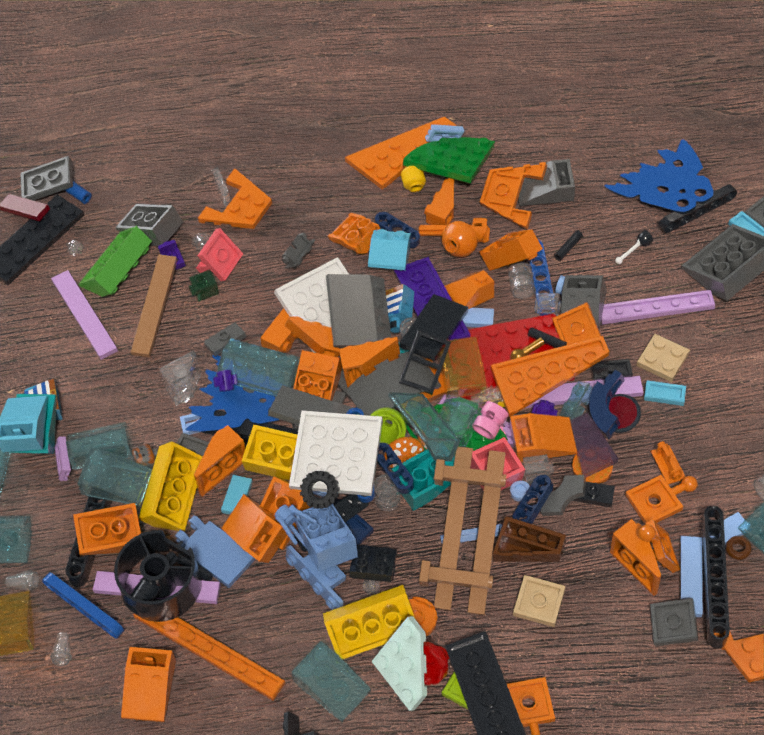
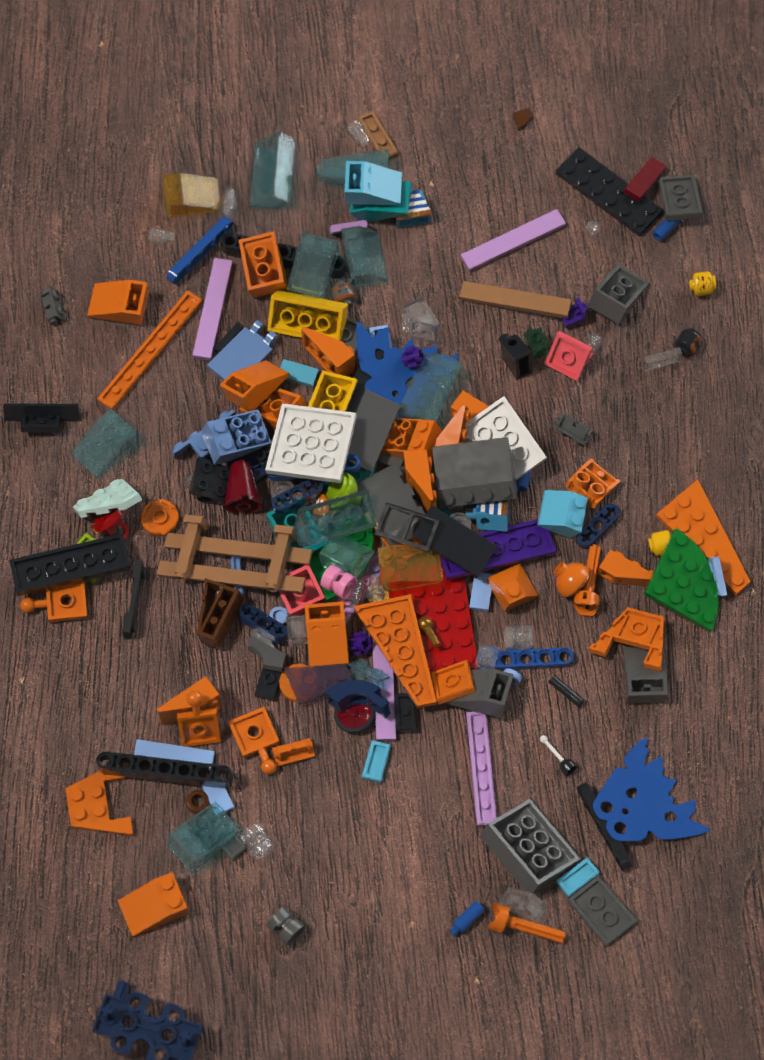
camera: 90 degrees right, 10 degrees up
(116, 262) = (569, 263): bright green slope -> none
(141, 158) = (703, 283): none -> yellow head
(158, 577) = (213, 301): black animal -> none
(202, 168) = (689, 342): none -> black head
(218, 298) = (516, 355): none -> black torso
(218, 341) = (473, 363): dark grey plate -> none
(244, 209) = (638, 384): orange wing -> none
(286, 517) = (253, 403): medium blue plant -> none
(332, 489) = (264, 420): black tyre -> none
(367, 621) = (154, 475): yellow slope -> none
(381, 529) = (242, 489): none -> dark red cone
(511, 249) = (551, 626): orange wedge -> none
(539, 601) = (162, 619): tan plate -> none
(548, 339) = (441, 652): black piece -> none
(551, 632) = (130, 624): none -> black container
(663, 357) = (417, 765): tan plate -> none
(674, 622) = (127, 731): dark grey tile -> none

